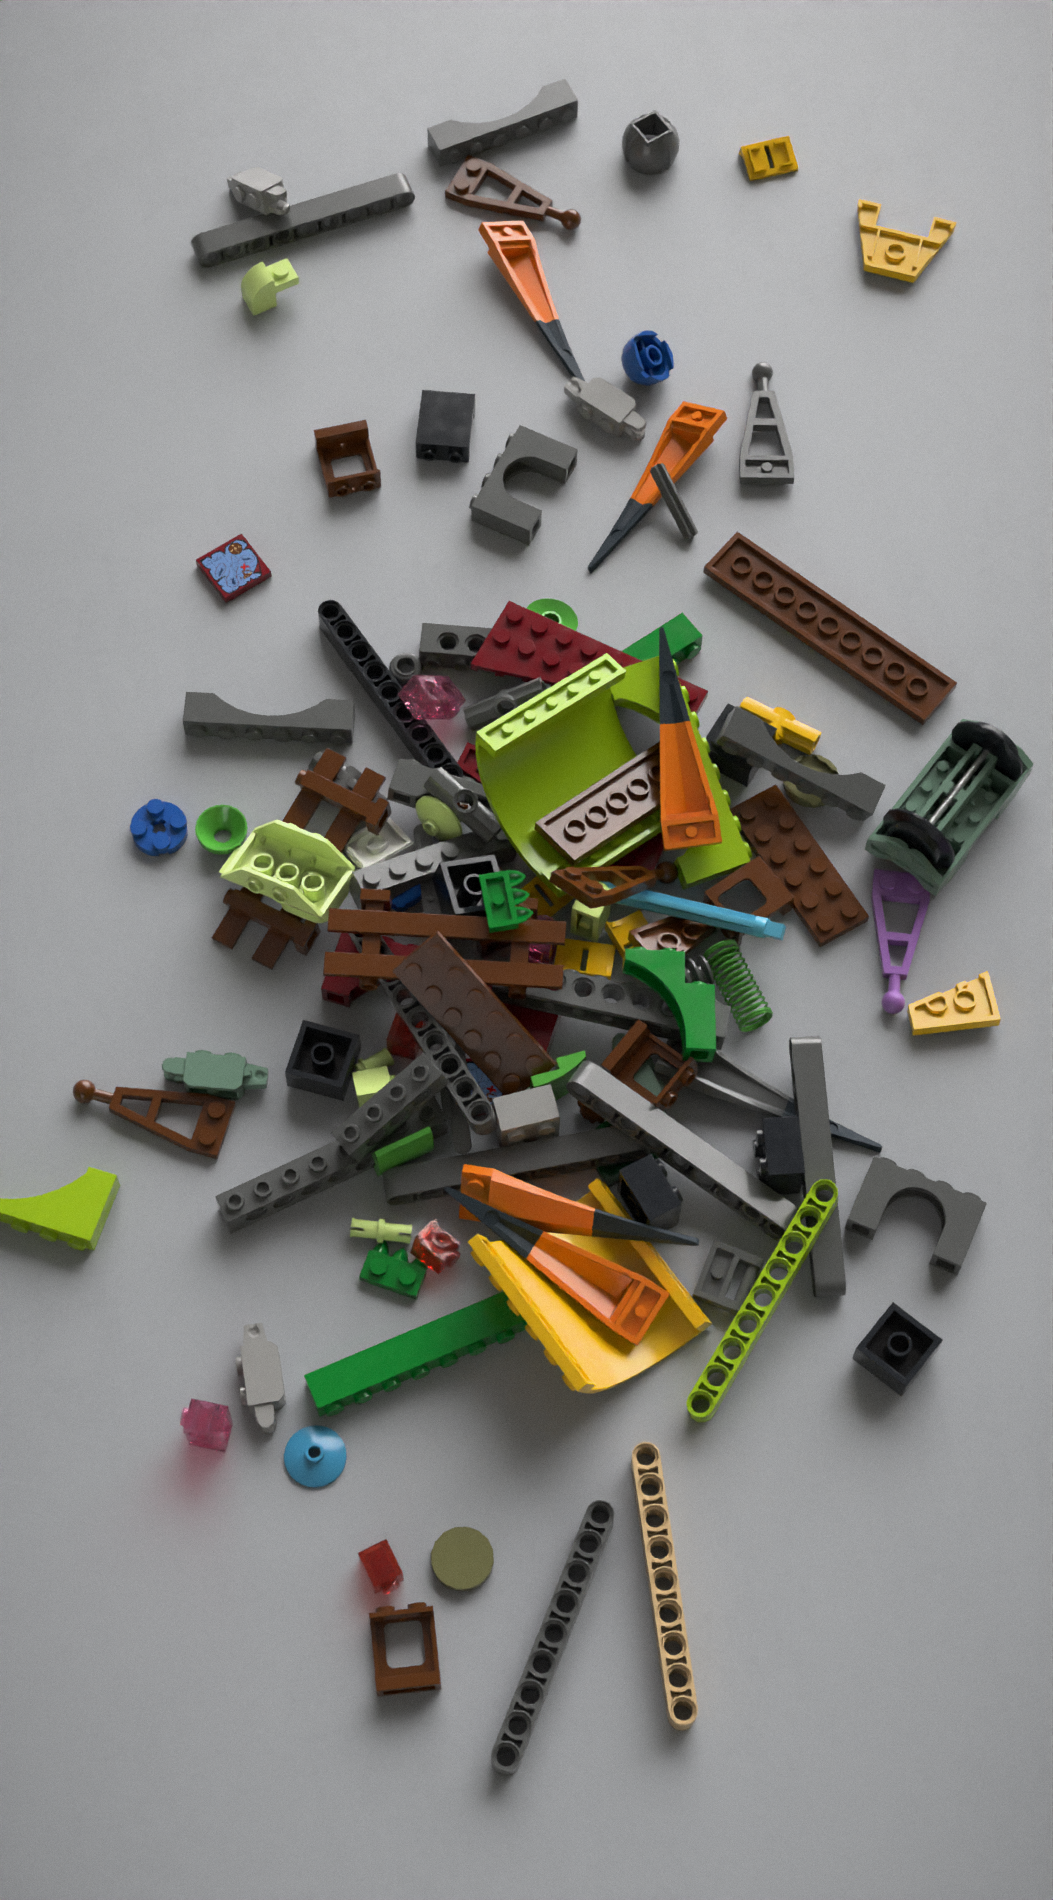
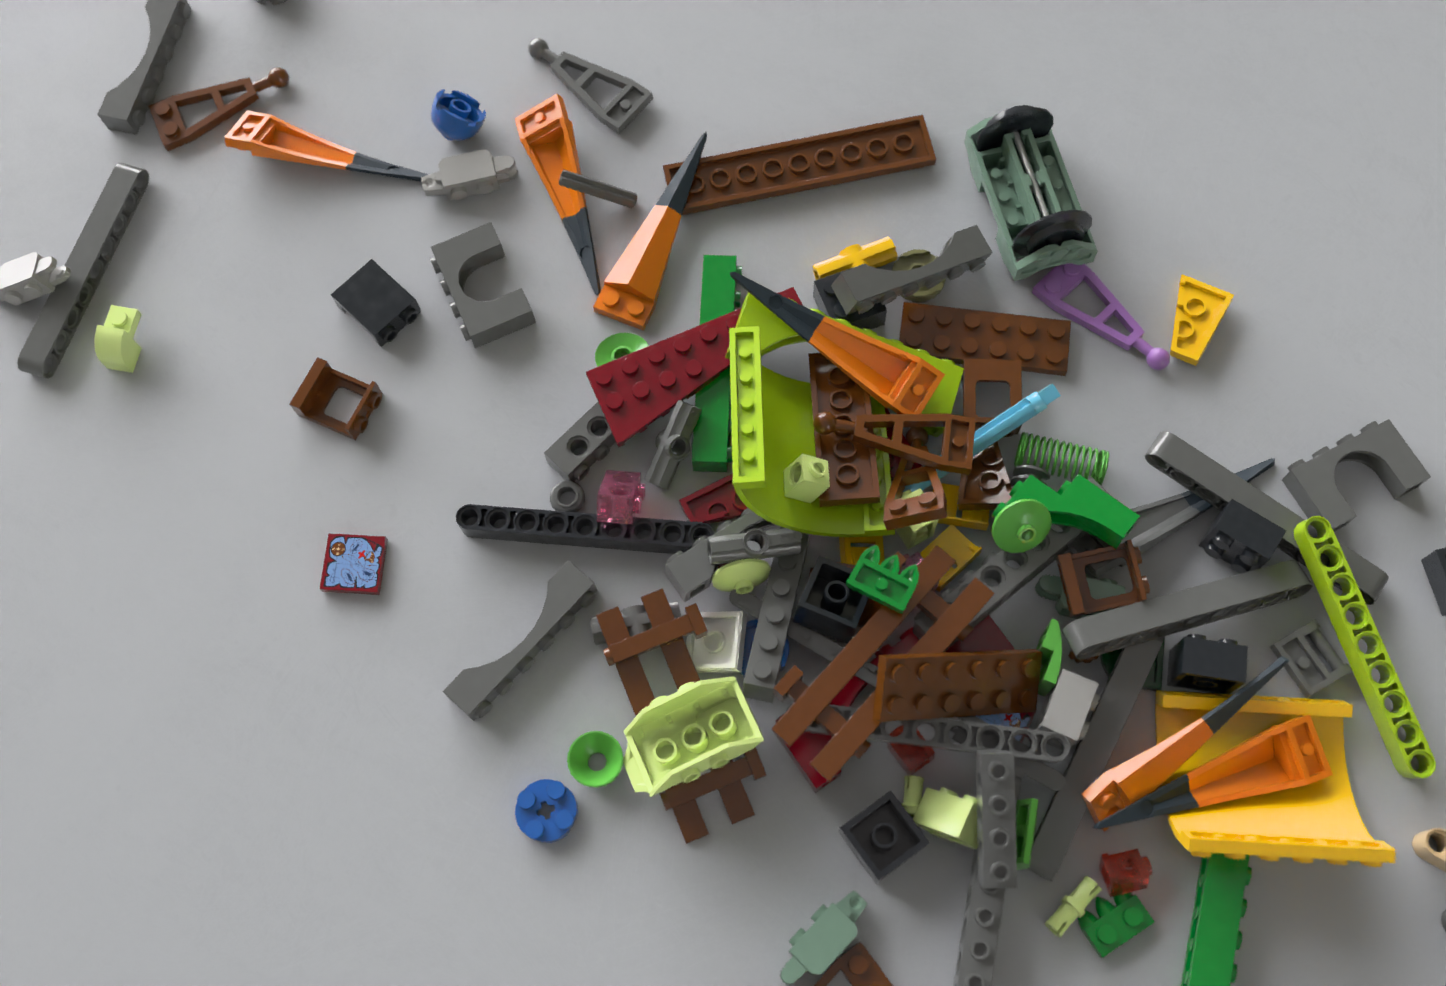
camera: 45 degrees left, 5 degrees up
(544, 799) = (806, 478): none -> yellowish green brick
(631, 582) = (637, 277): none -> orange plate
(644, 968) = (1021, 525): none -> bright green dish
(659, 891) = (956, 440): none -> reddish brown plate

